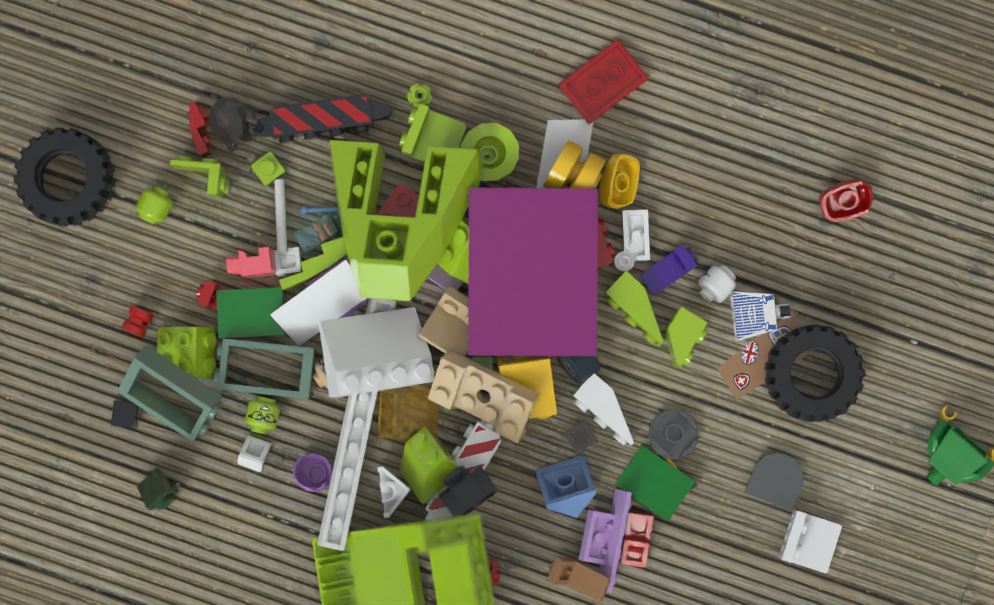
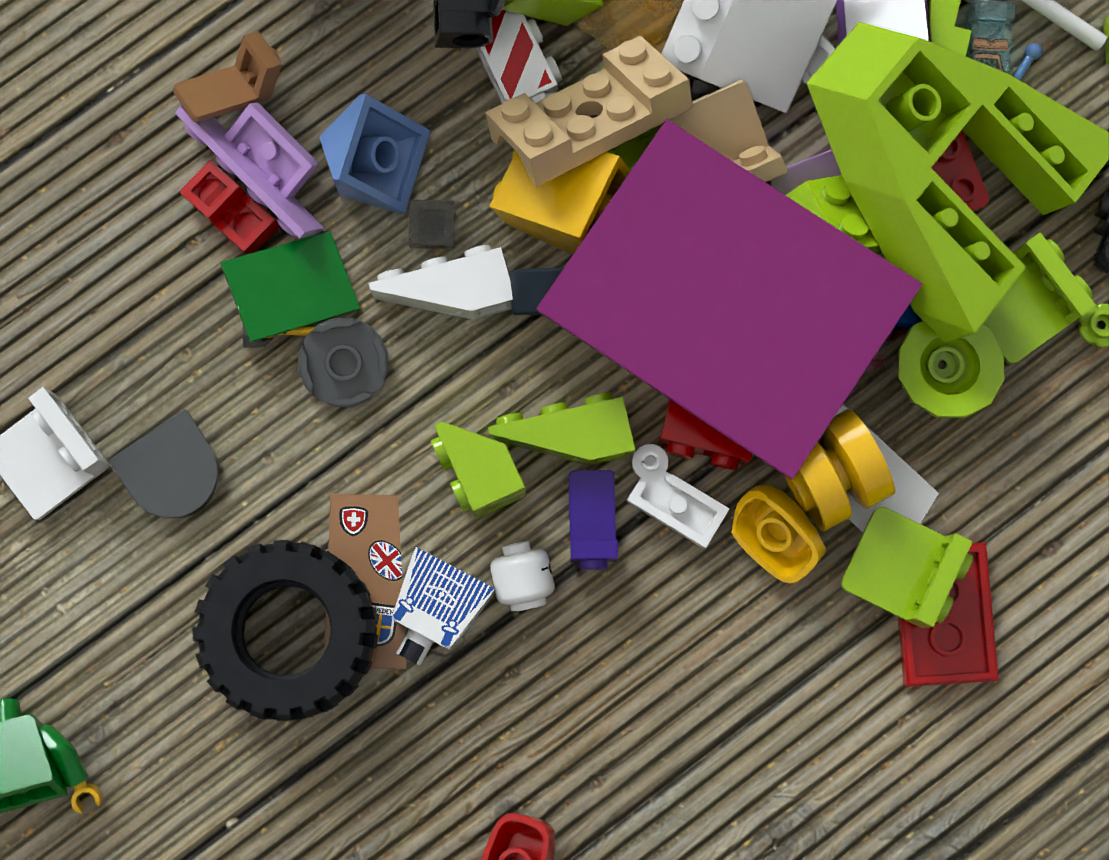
camera: 120 degrees right, 5 degrees down
(597, 113) = (906, 568): none -> lime bracket

